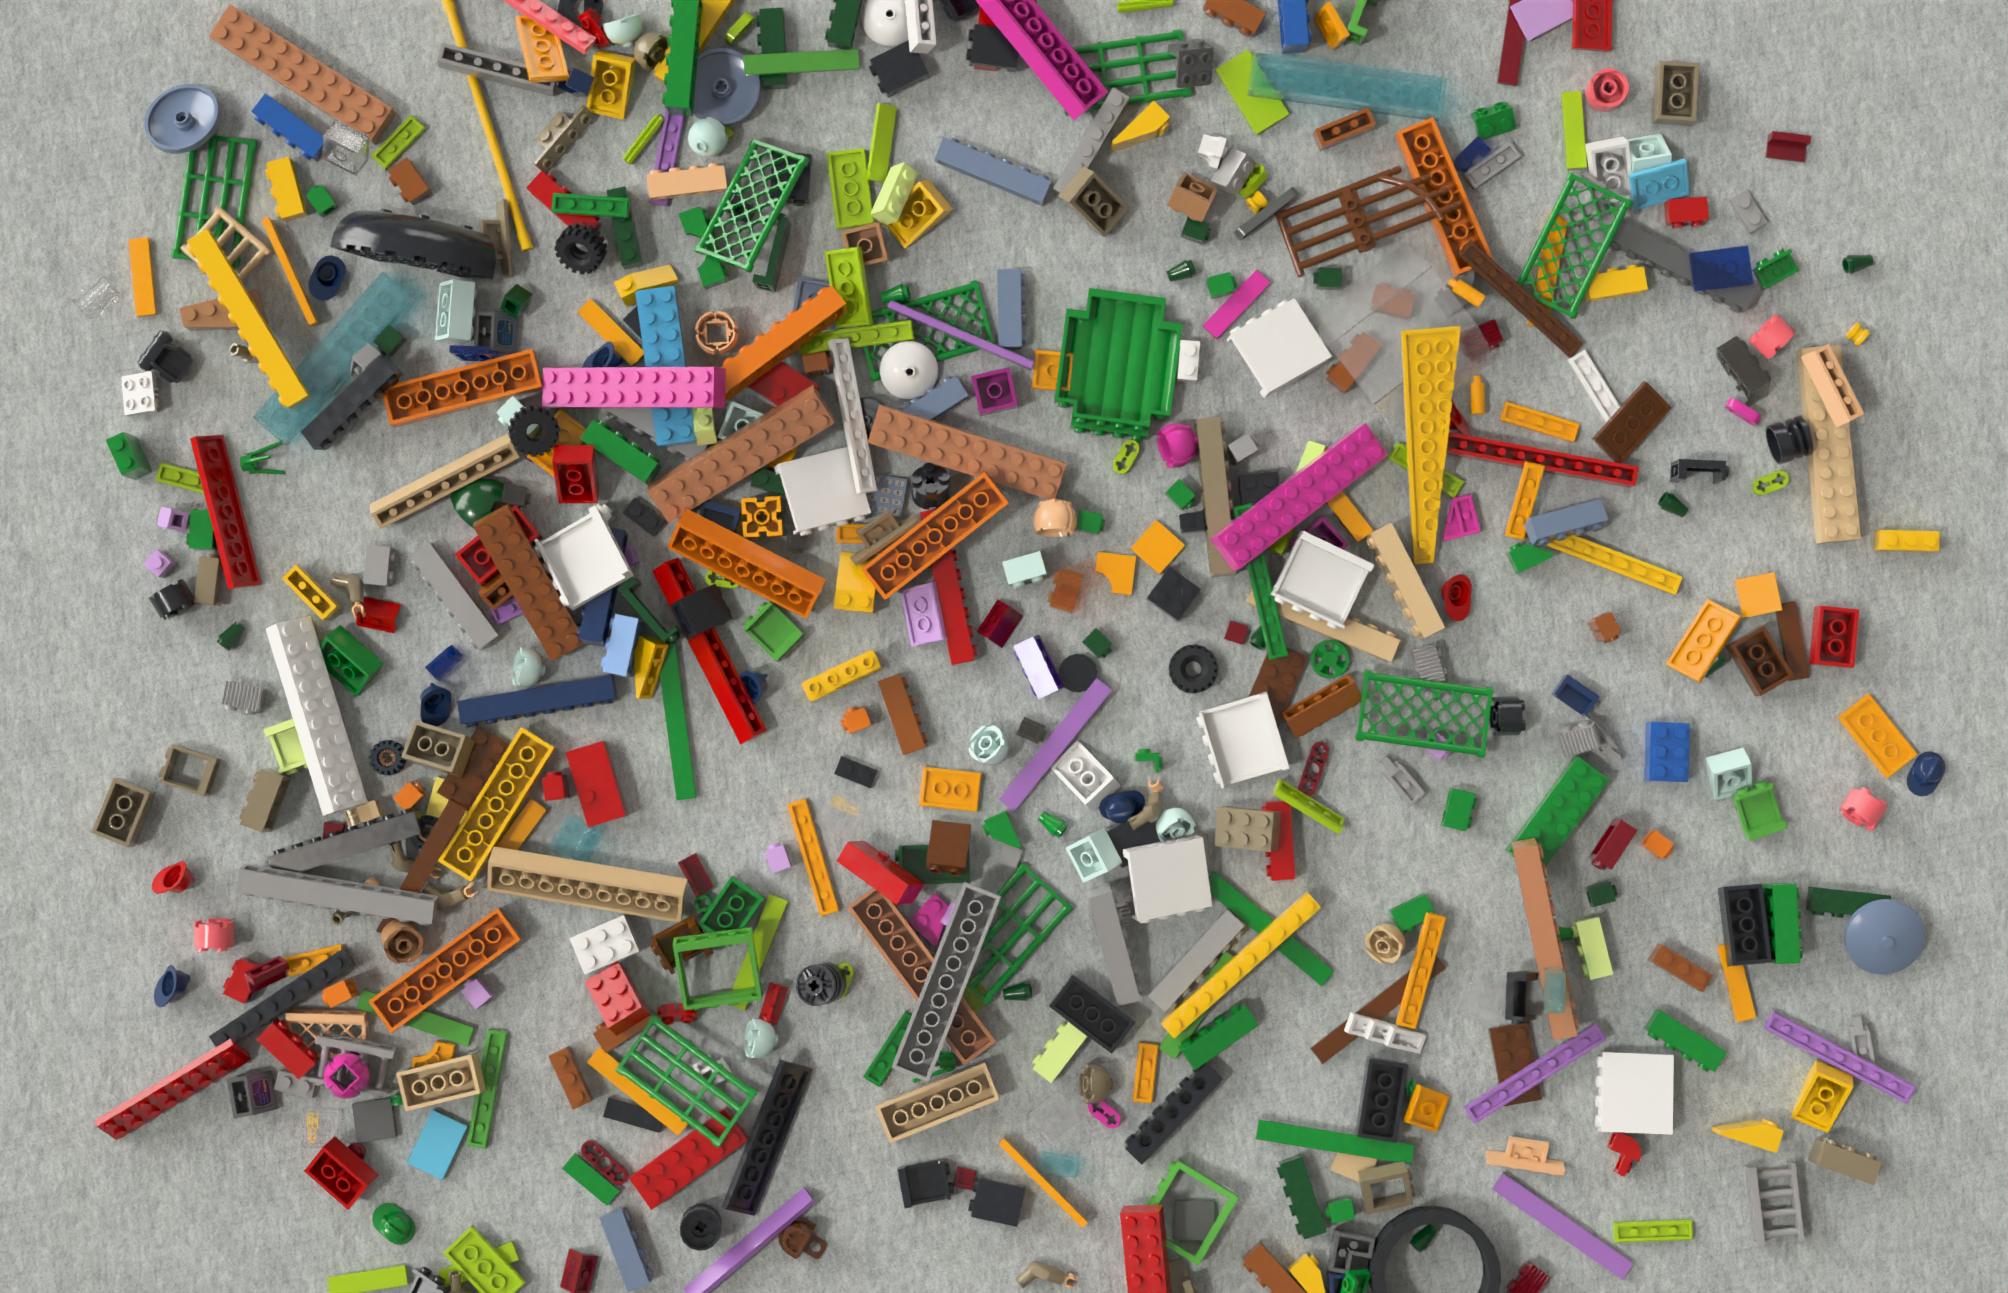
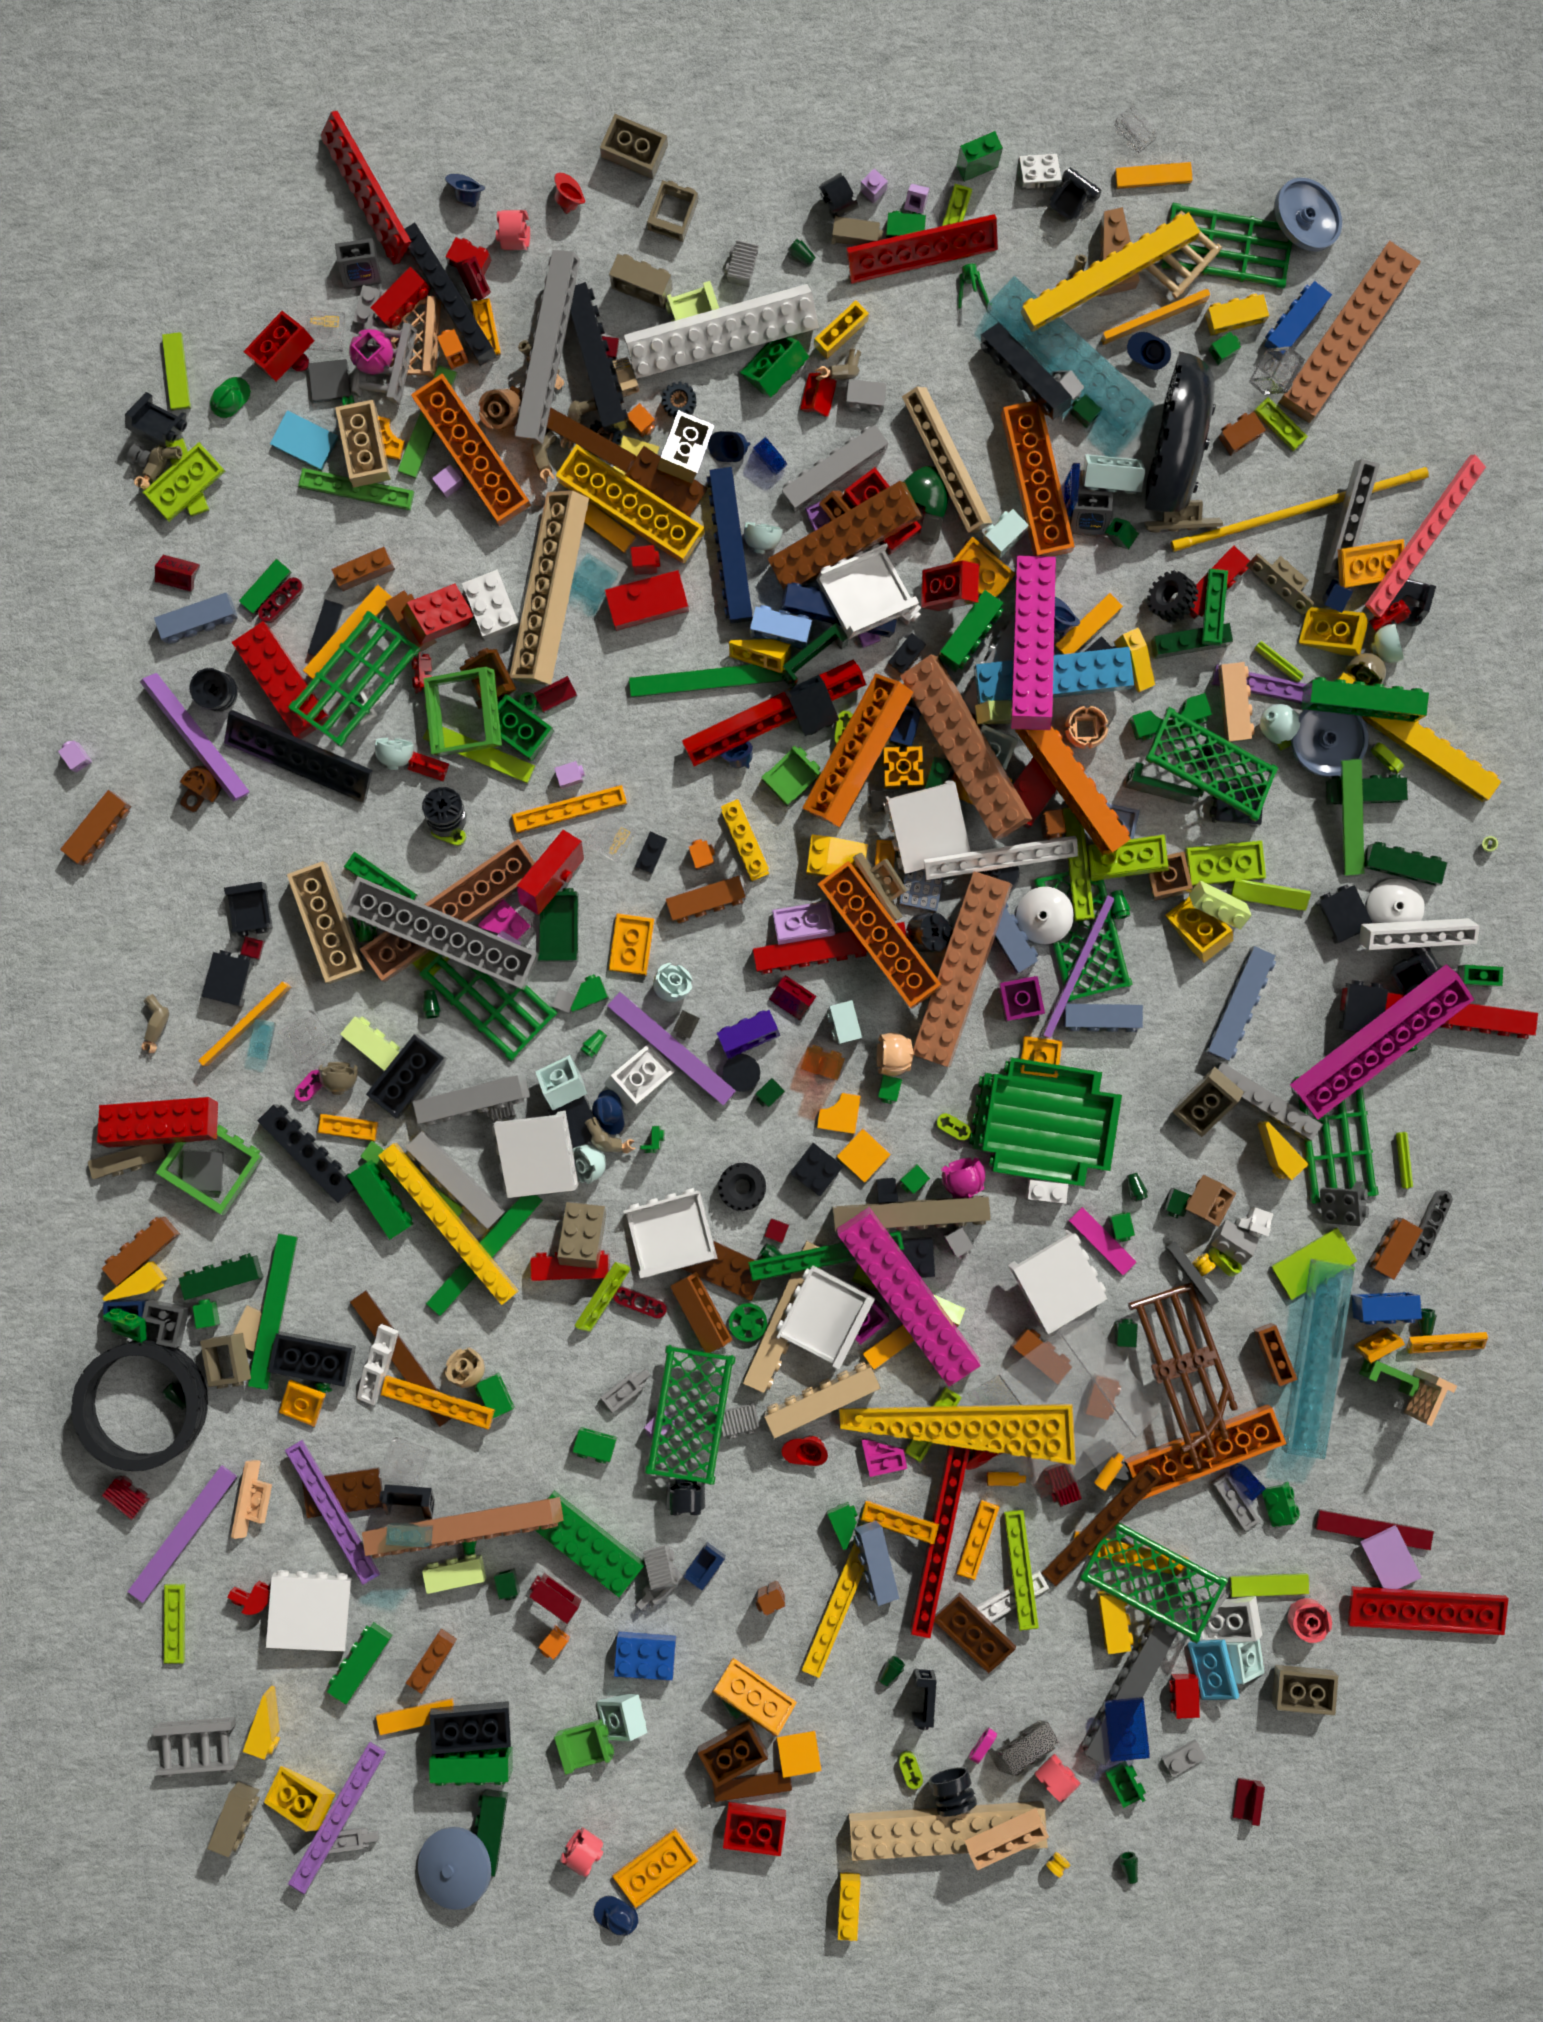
camera: 90 degrees right, 0 degrees up
(529, 416) = (1008, 542): black tyre -> none
(948, 847) = (573, 940): reddish brown panel -> none
(1567, 377) = (1021, 1570): none -> lime tile

